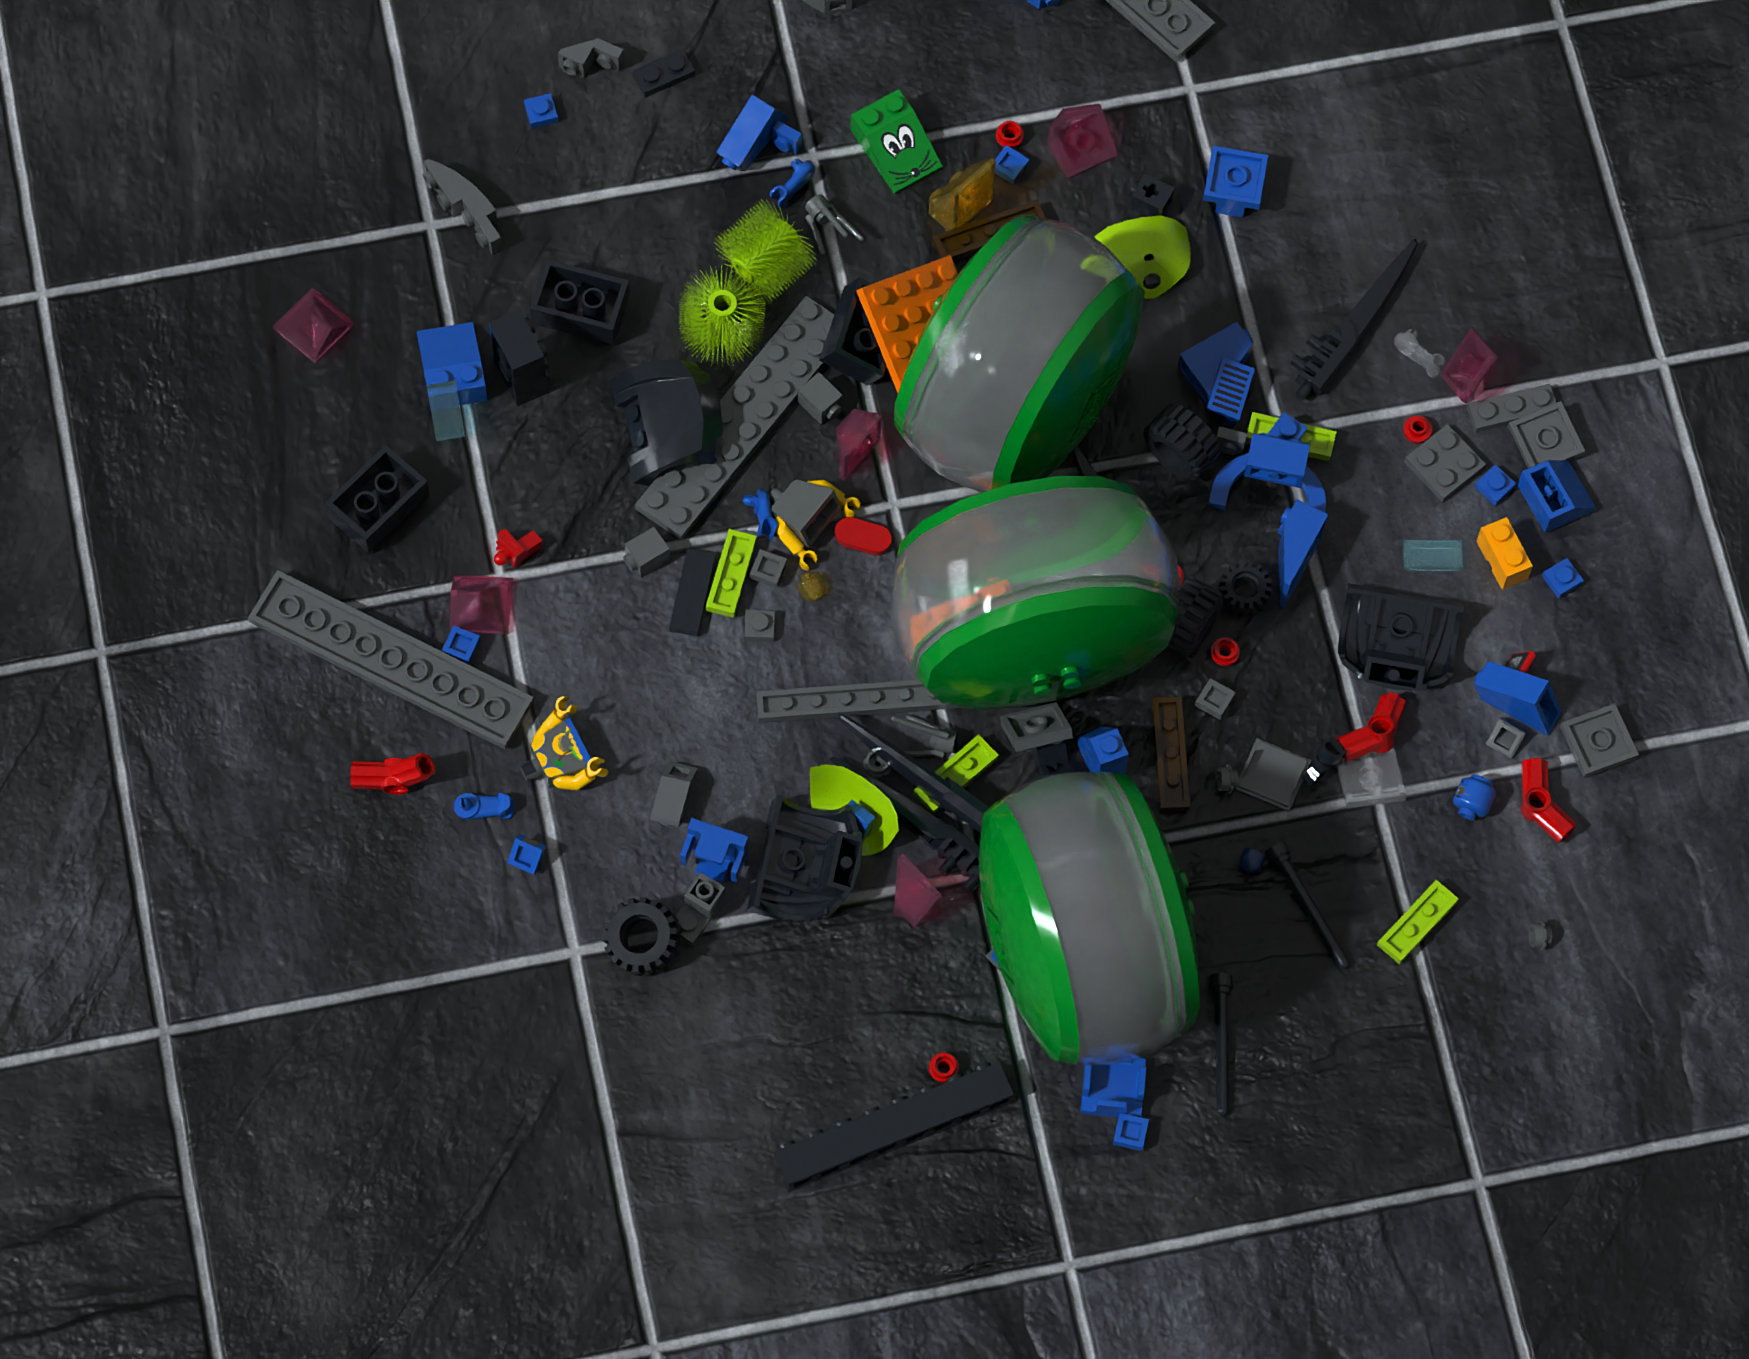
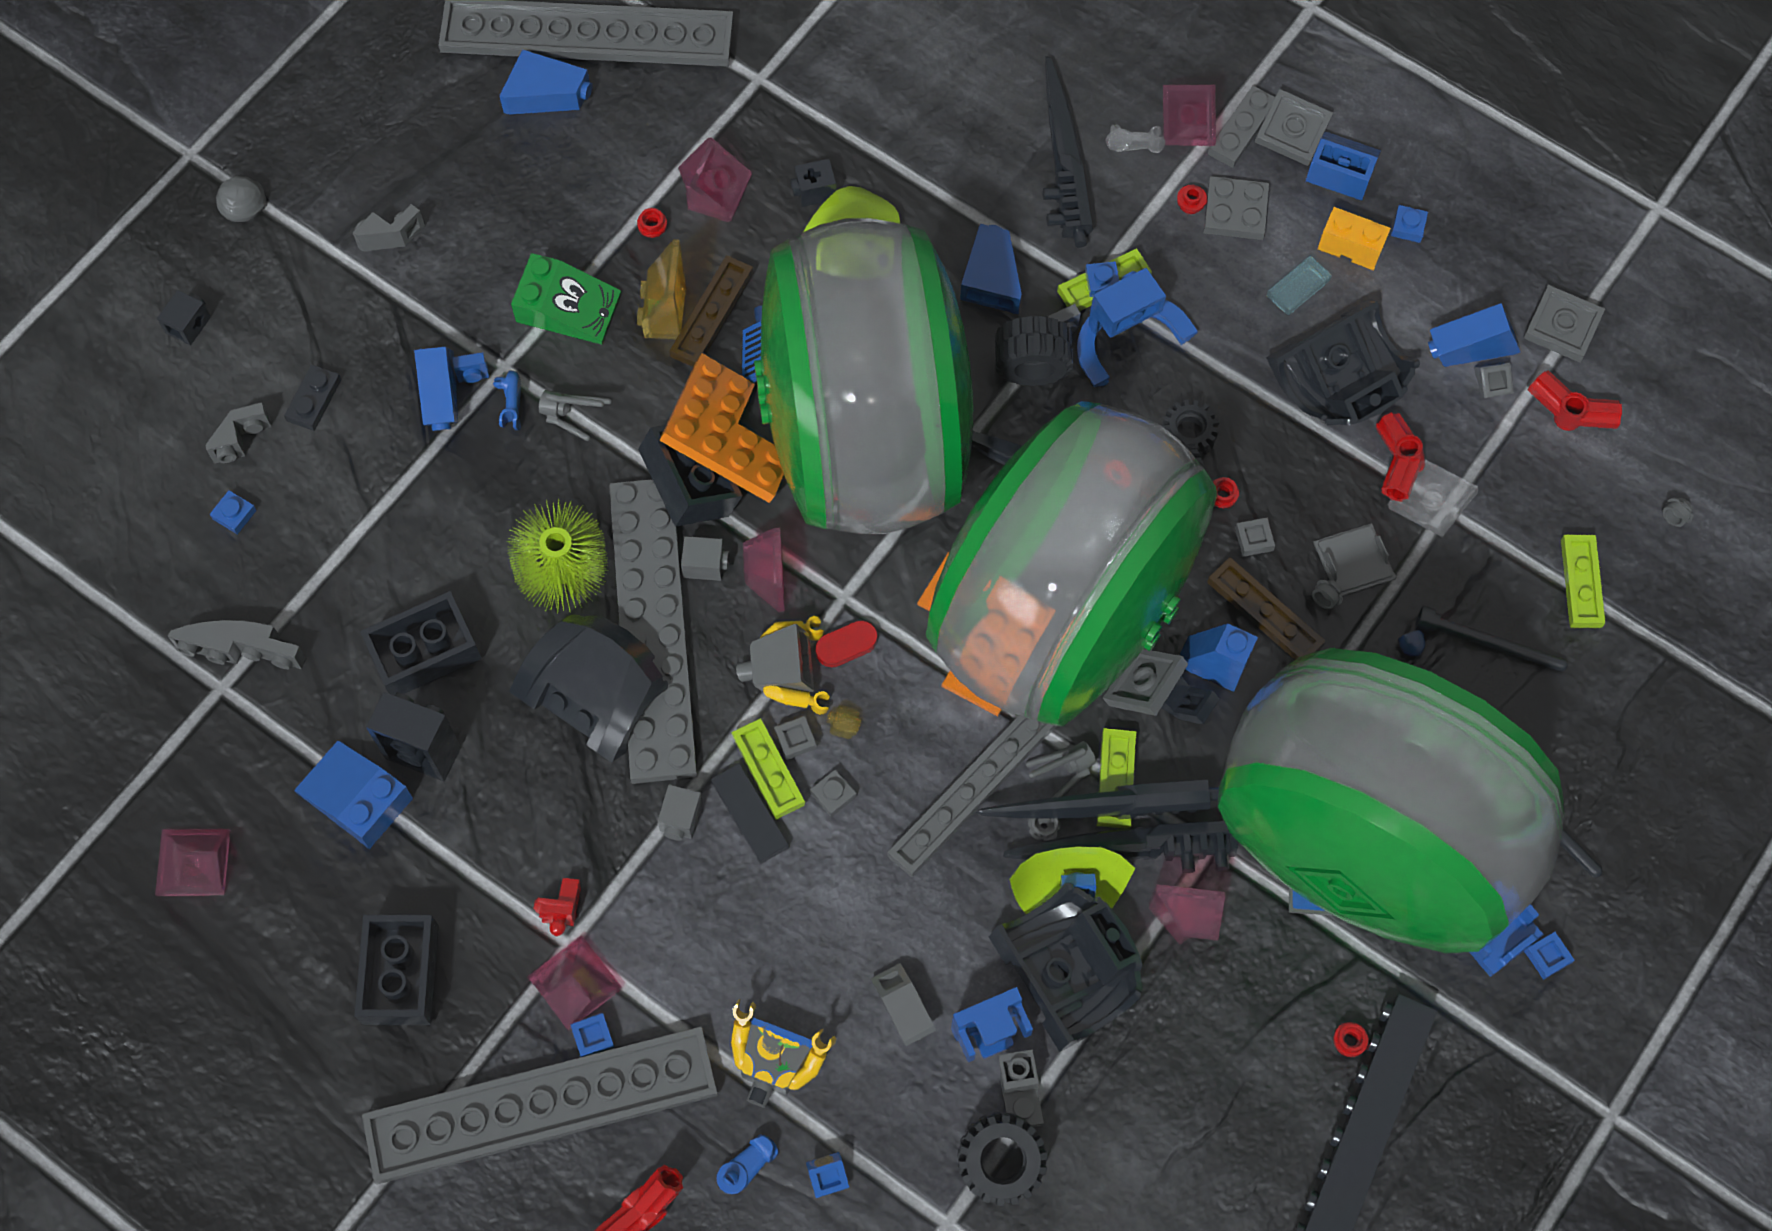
camera: 40 degrees left, 0 degrees up
(445, 410) = (388, 838): clear light blue tile -> none
(762, 509) = (741, 690): blue piece -> none
(764, 250) = (546, 470): lime piece -> none
(1010, 164) = (683, 235): blue plate -> none
(1230, 391) = (1029, 282): blue panel -> none
(1235, 180) = (868, 118): blue panel -> none
(1300, 535) = (1201, 362): blue slope -> none
(1327, 755) = (1393, 504): black piece -> none
(1474, 797) = (1524, 445): blue head -> none
(1495, 485) = (1289, 194): blue plate -> none
(1521, 661) = (1448, 311): slope -> none

